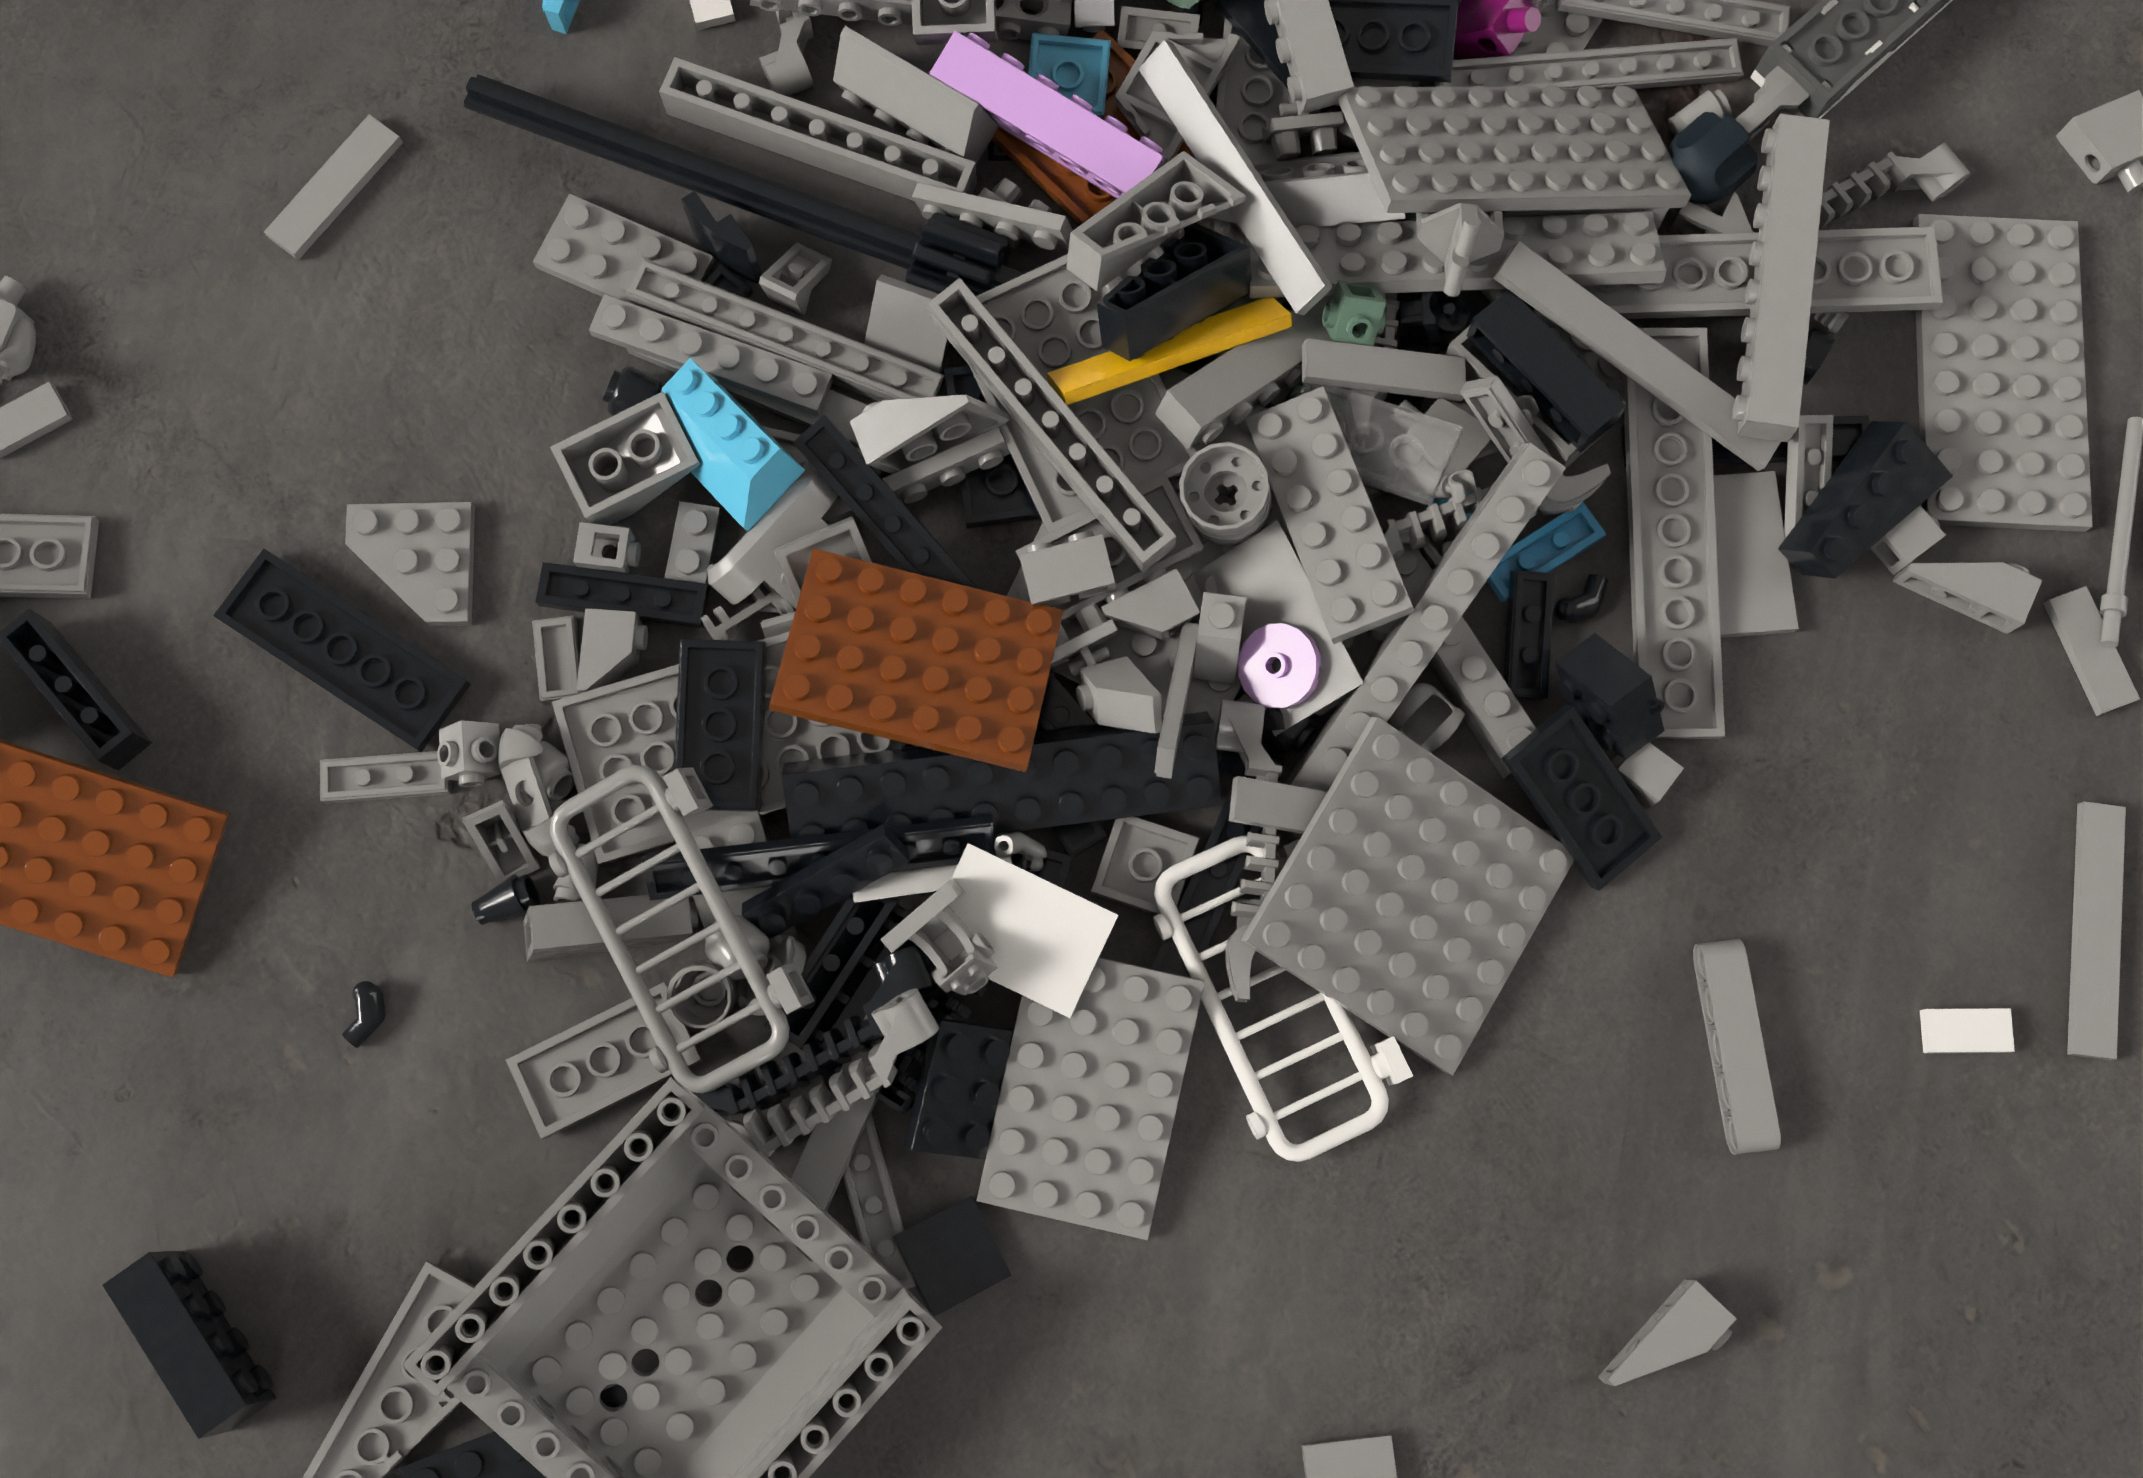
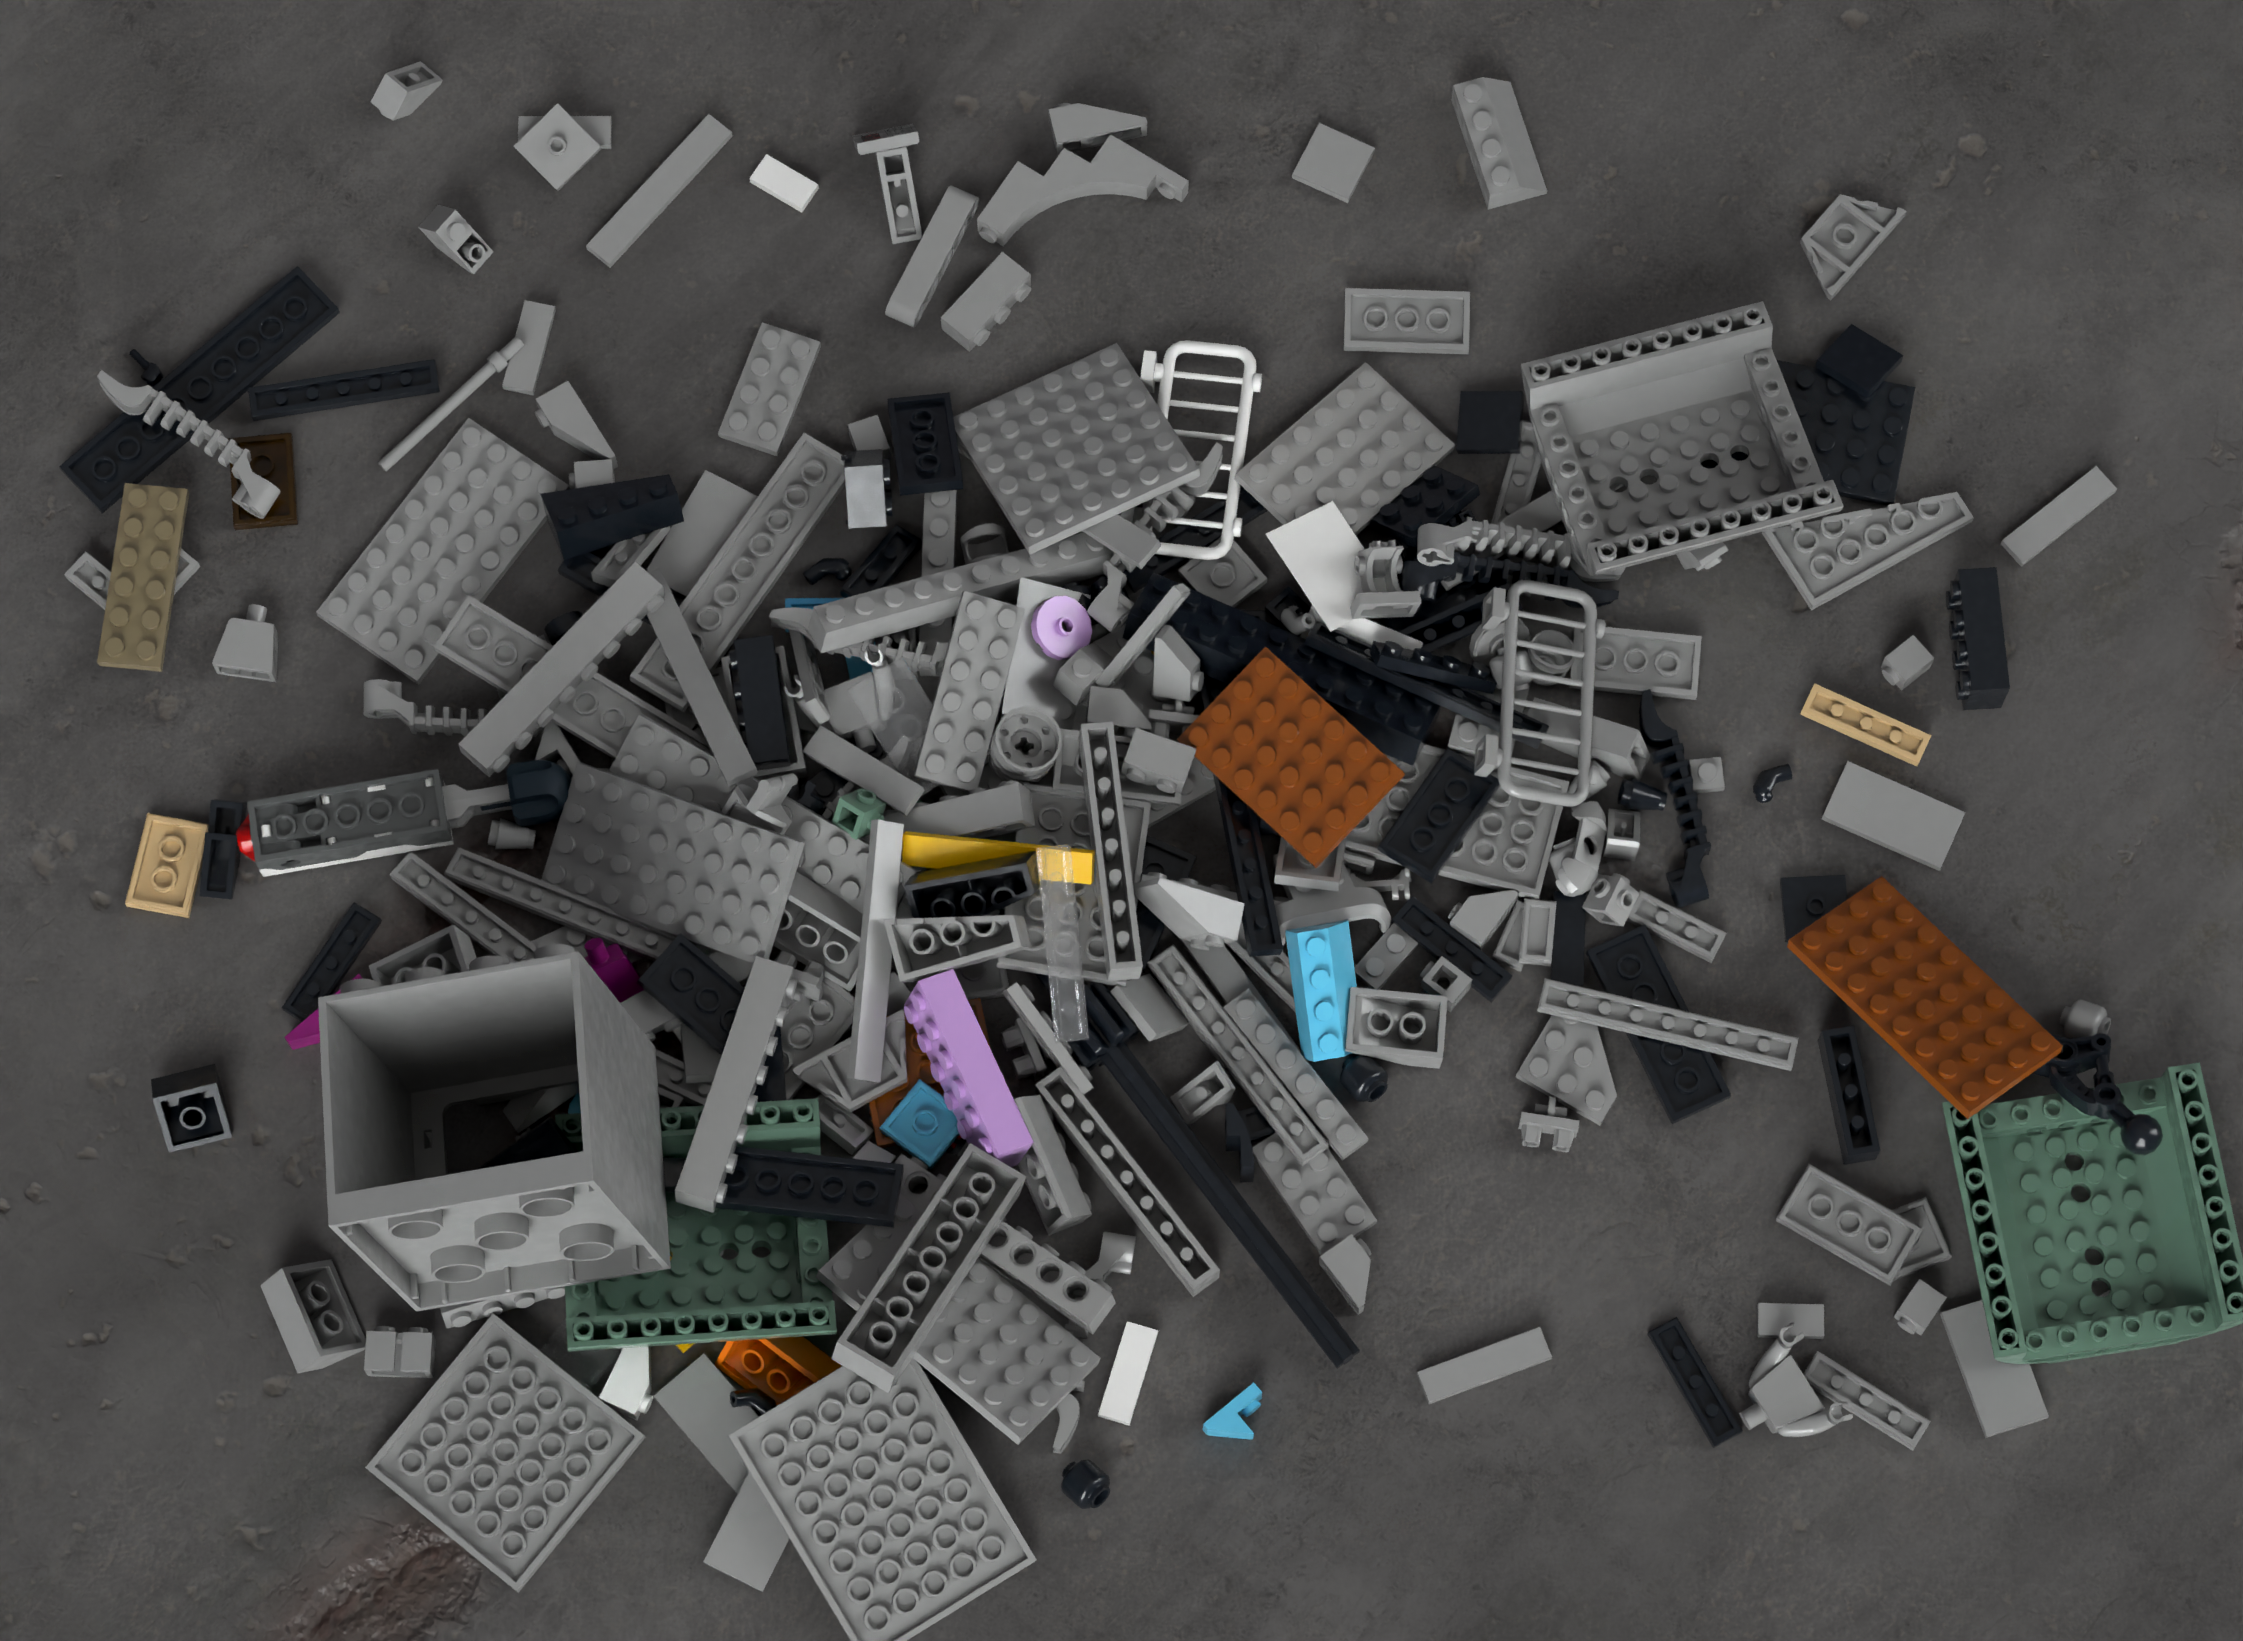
camera: 145 degrees left, 5 degrees down
(97, 299) = (1695, 1382): none -> black tile
(197, 1062) = (1893, 815): none -> light grey tile
(240, 896) = (1809, 899): none -> black plate
(273, 1260) = (1906, 663): none -> light grey brick
(285, 1152) = (1865, 724): none -> tan plate
(323, 647) = (1668, 1024): none -> light grey tile
(396, 831) = (1687, 883): none -> black piece
(404, 469) = (1534, 1124): none -> light grey hips
(446, 976) = (1707, 774): none -> light grey plate
(496, 679) = (1568, 939): none -> black tile
(530, 190) = (1349, 1269): none -> light grey slope
(534, 667) = (1537, 932): none -> light grey tile
(1036, 292) = (1062, 943): none -> clear tile
(1131, 1326) = (1406, 321): none -> light grey plate
(1608, 1293) = (1113, 170): none -> light grey arch
(1634, 1027) = (986, 302): none -> light grey brick
(1798, 771) = (769, 389): none -> light grey plate
(1834, 1101) = (898, 195): none -> light grey slope
(1896, 1151) = (886, 139): none -> light grey tile

